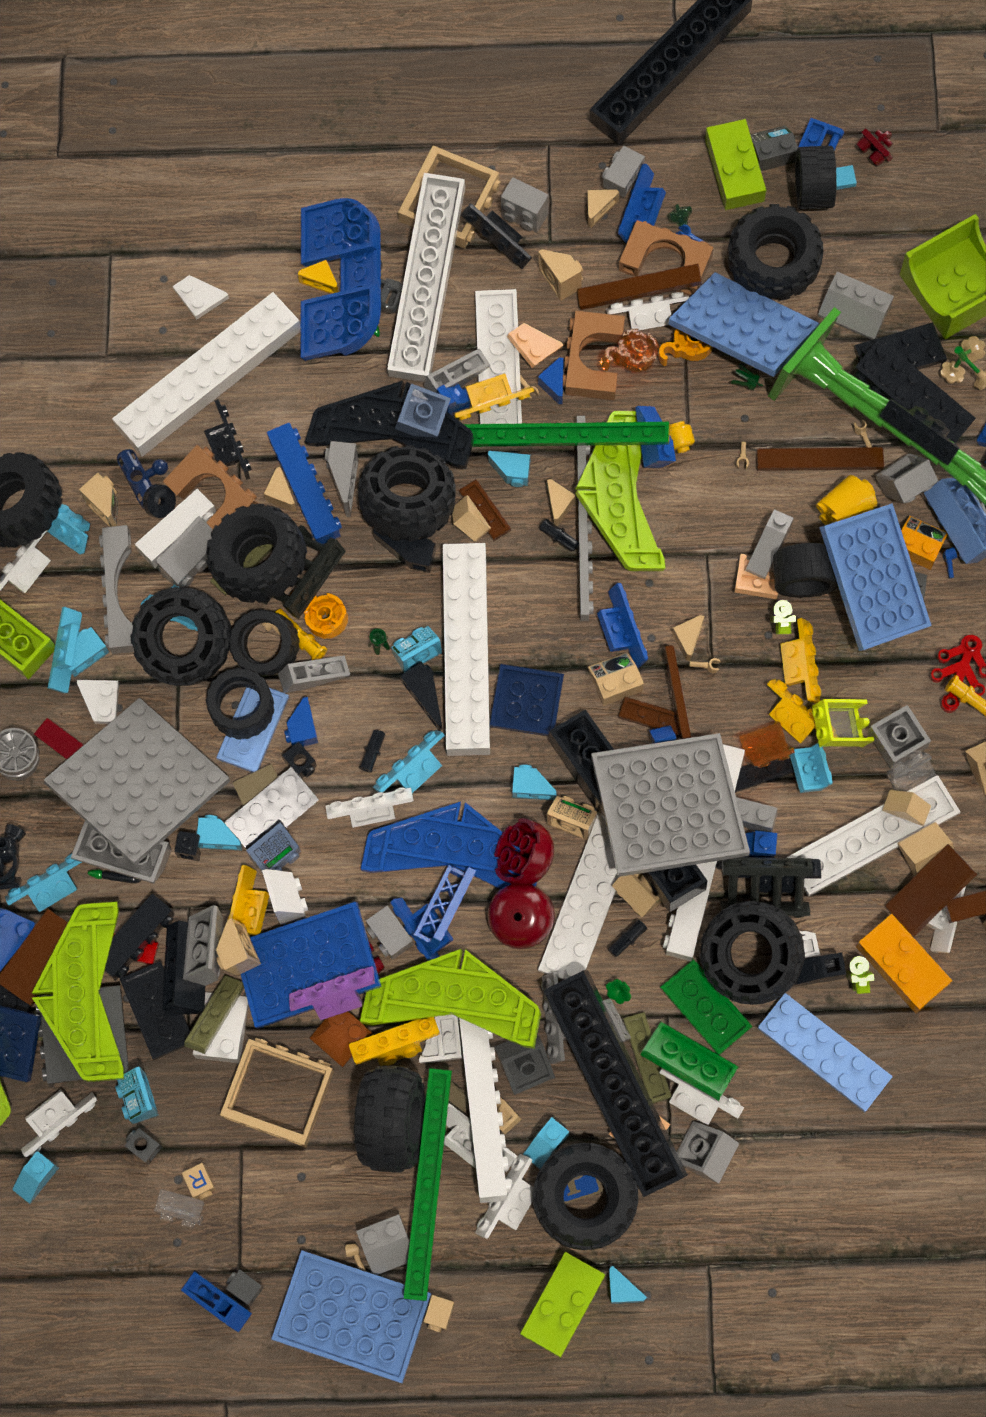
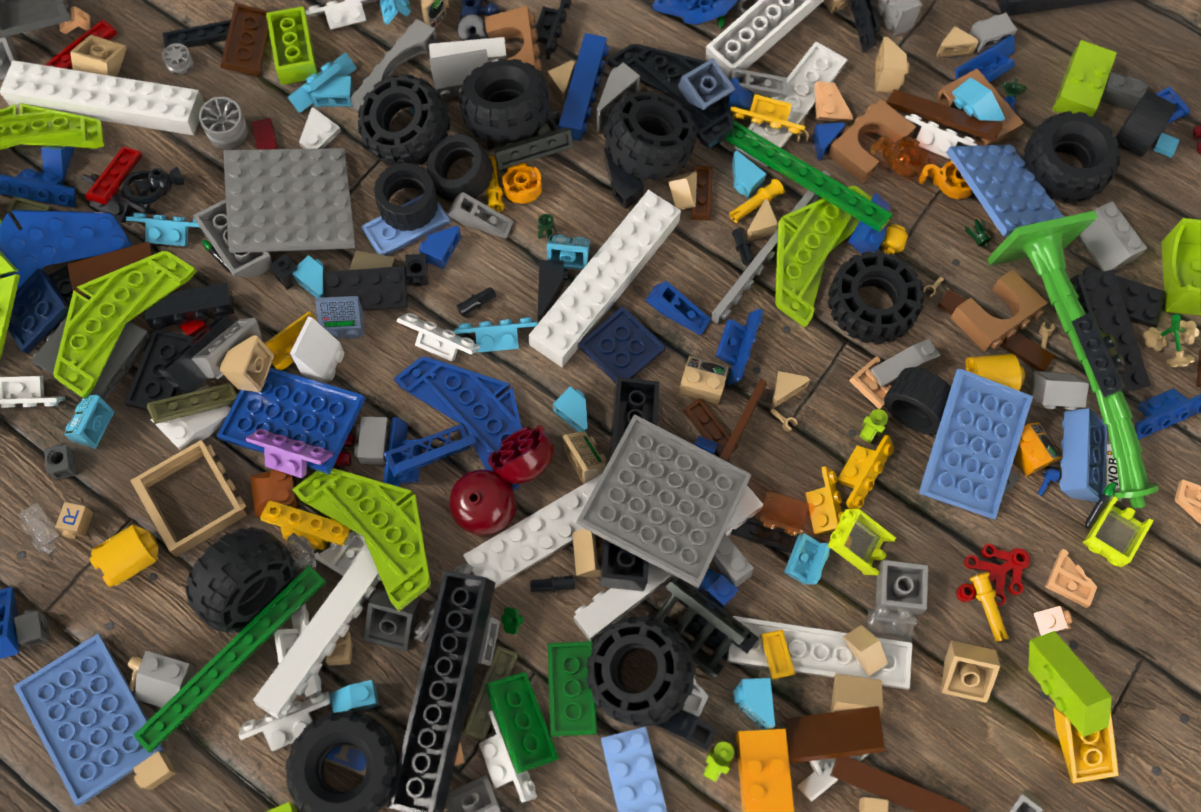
camera: 30 degrees right, 5 degrees down
(270, 1174) = (125, 554): none -> yellow cylinder
(415, 1062) = (301, 552): none -> clear bracket
(541, 475) = (753, 203): none -> yellow pin
(546, 631) = (677, 307): none -> blue slope
(661, 258) = (977, 101): none -> medium azure slope
(704, 474) = (885, 273): none -> black tyre
(816, 466) = (990, 331): none -> medium nougat arch
(843, 861) = (777, 654): none -> yellow tile
(855, 910) = (756, 701): none -> medium azure slope

